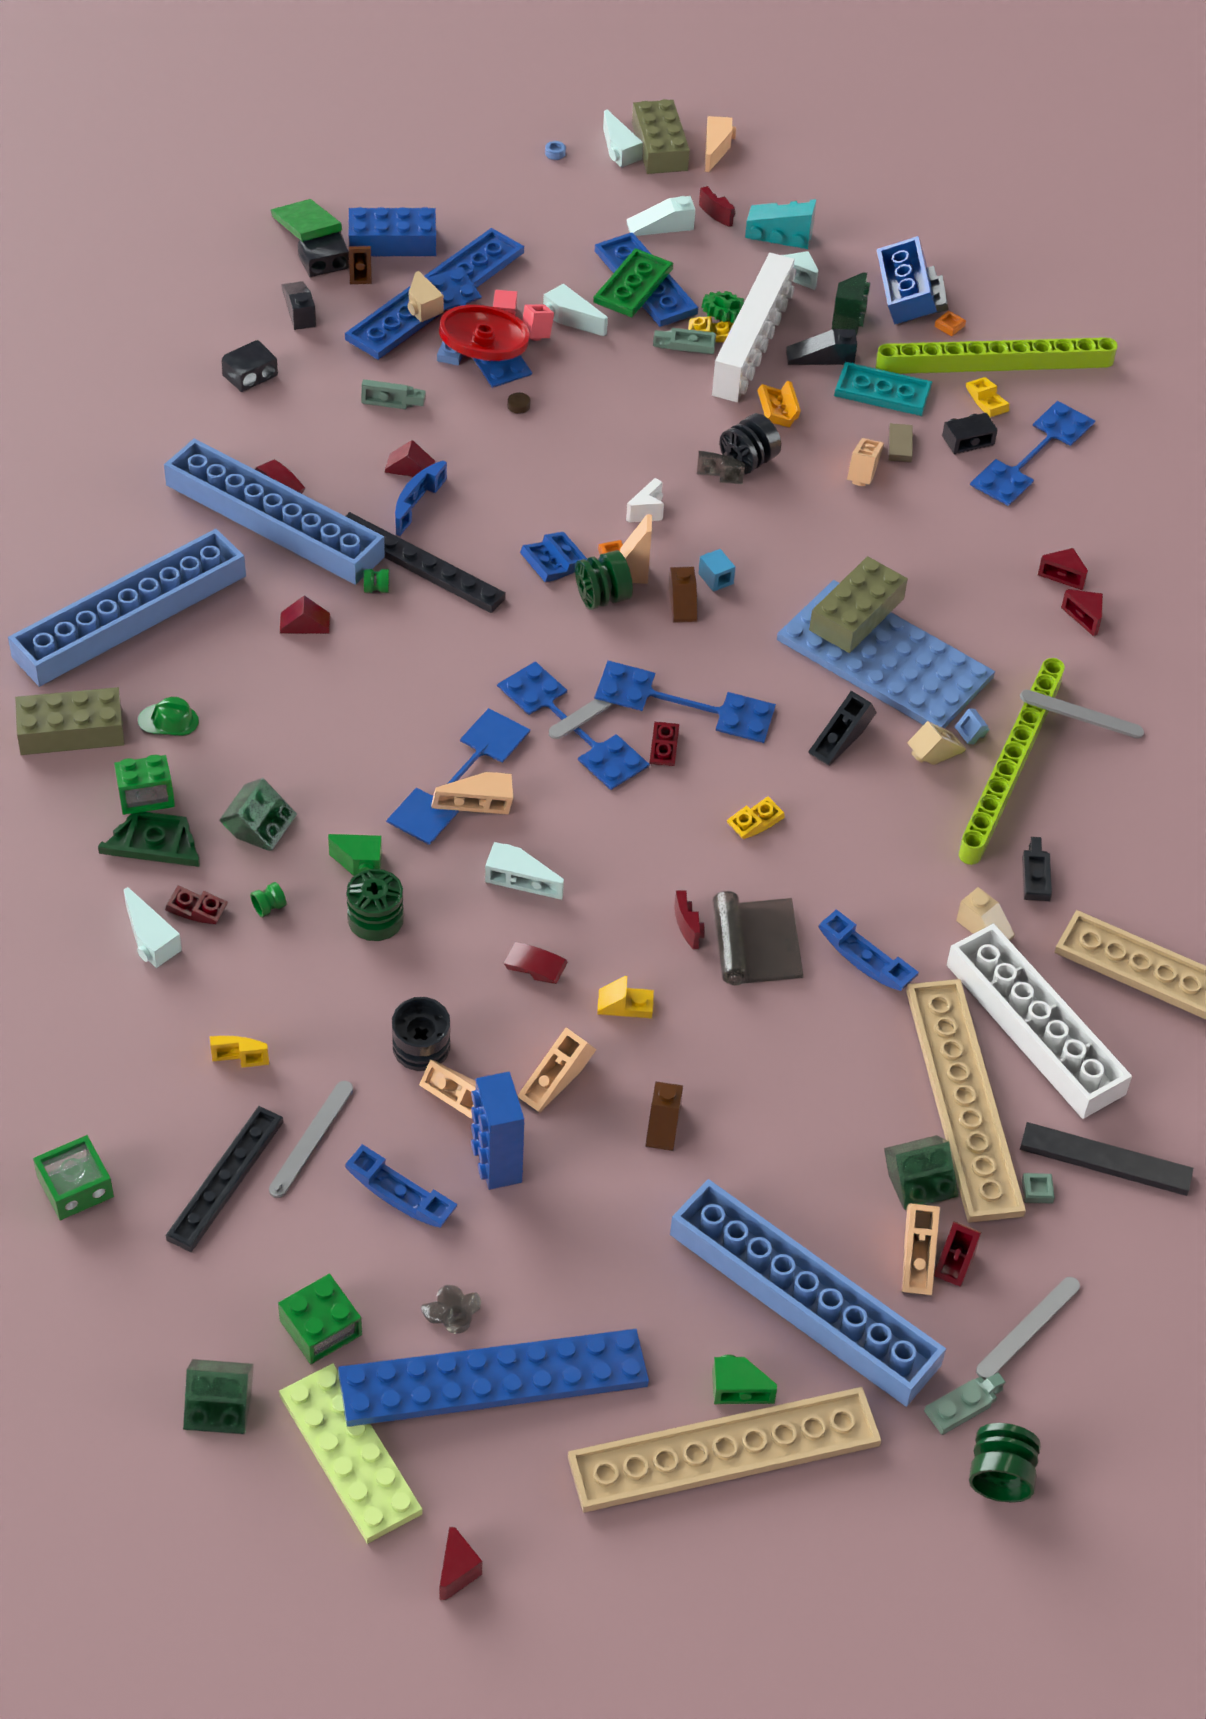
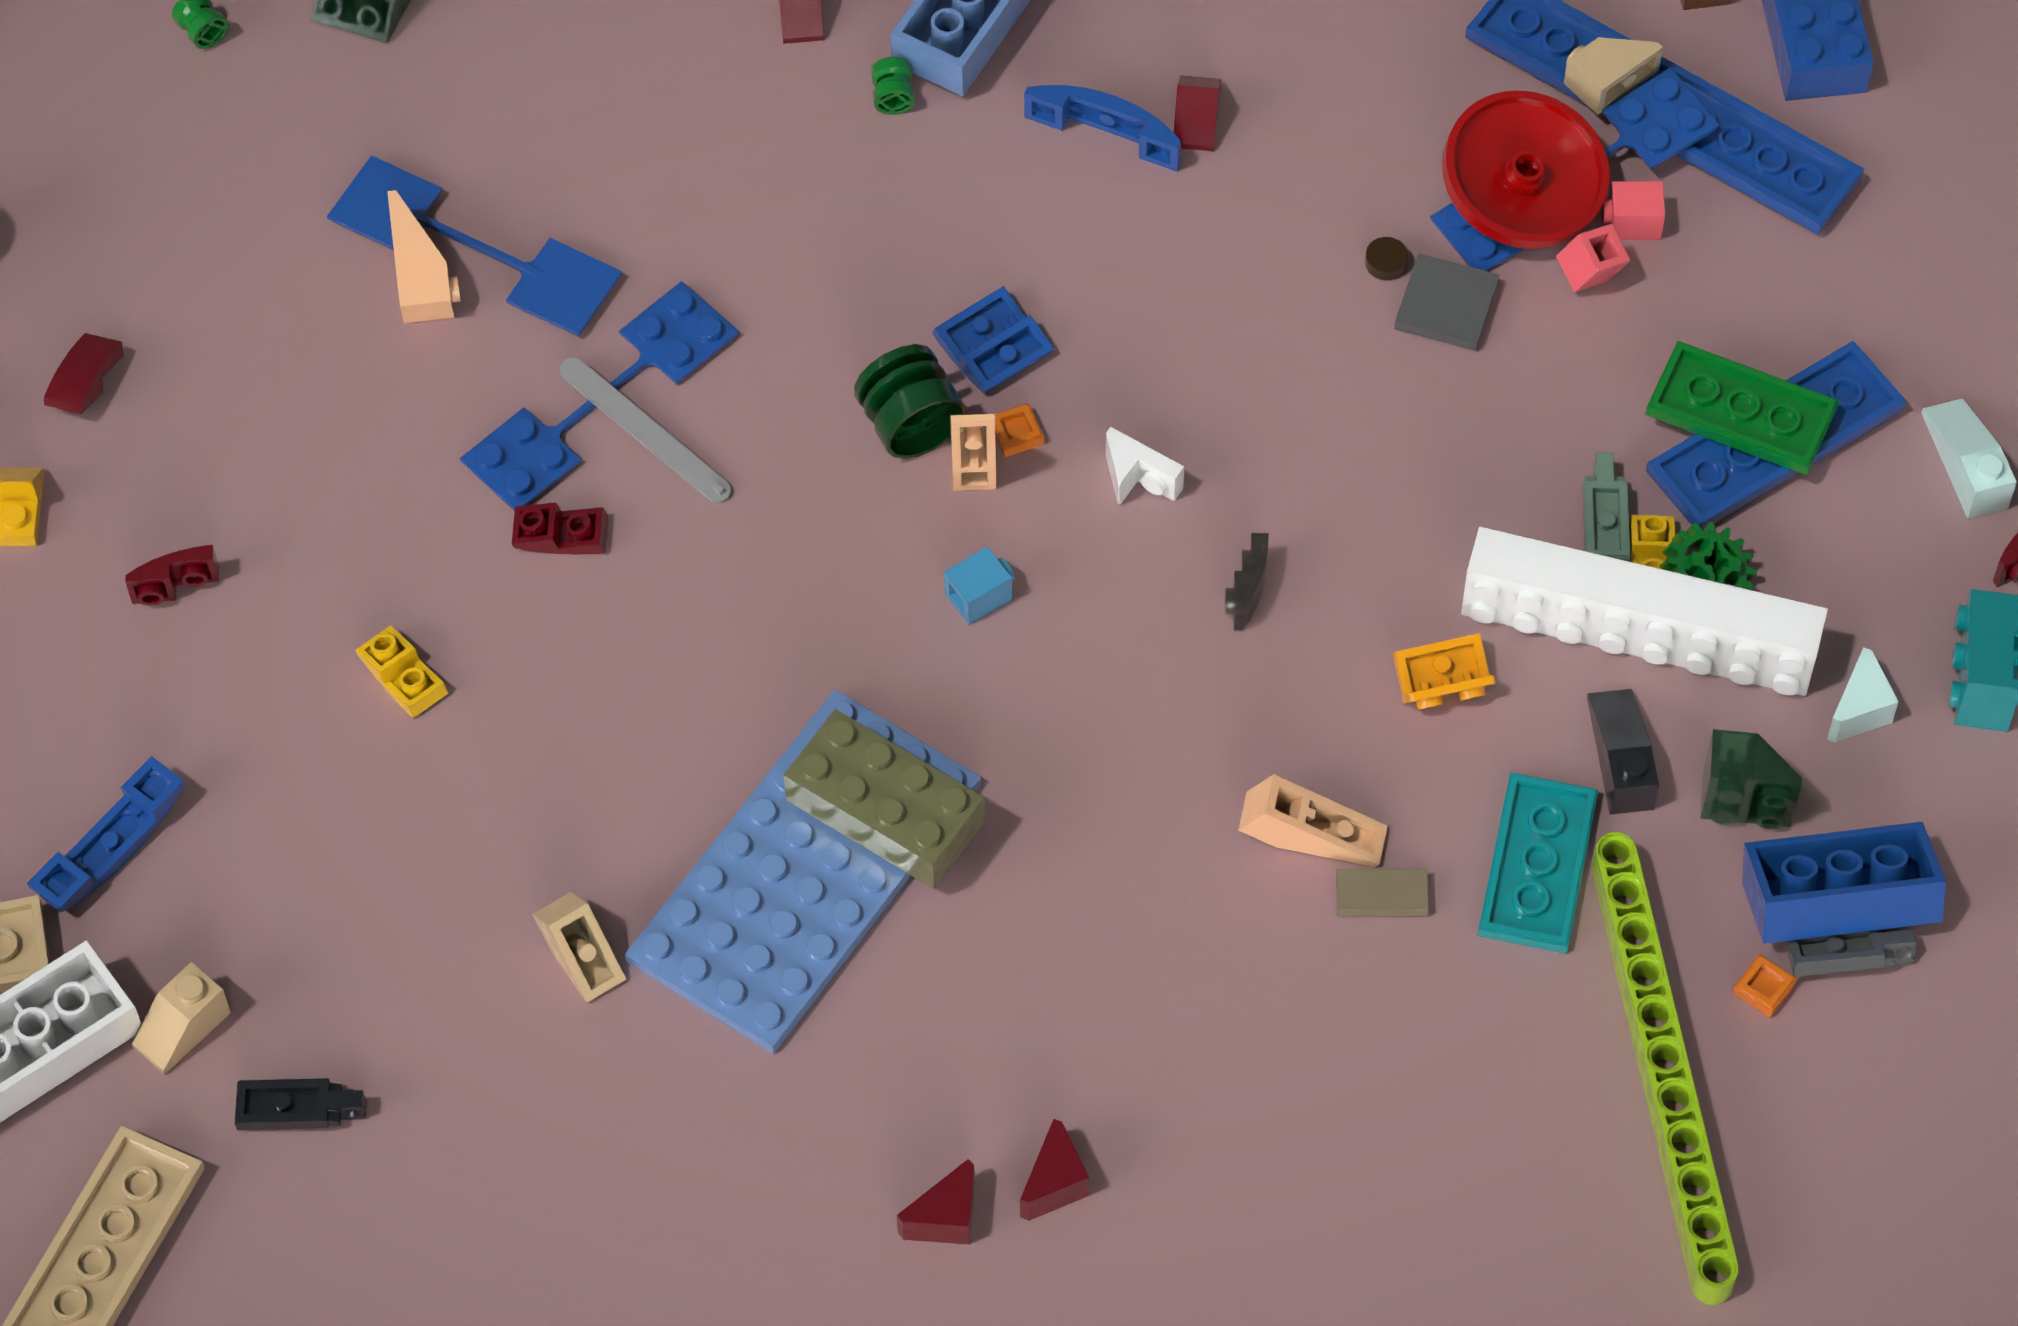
camera: 90 degrees right, 10 degrees up
(356, 852) = (291, 123): green slope -> none
(375, 904) = (178, 147): dark green wheel -> none
(391, 394) = (1363, 65): sand green hinge -> none
(436, 569) = (955, 149): black plate -> none
(518, 870) = (267, 338): light aqua slope -> none
(549, 383) = (1447, 302): none -> dark grey tile
(575, 311) = (1660, 308): light aqua slope -> none
(683, 594) = (909, 536): reddish brown slope -> none
(737, 716) = (640, 646): blue hinge -> none
(751, 442) = (1298, 615): black wheel -> none
(756, 939) = (139, 677): clear smoke door -> none
(843, 728) = (607, 795): black slope -> none
(969, 433) = (1418, 1009): black brick -> none
(972, 726) = (625, 1003): medium blue tile -> none
(986, 397) = (1544, 1052): yellow slope -> none
(1007, 482) = (1484, 1192): blue hinge -> none
(1009, 766) = (567, 1085): lime beam -> none
(1081, 713) = (660, 1184): light grey piece -> none

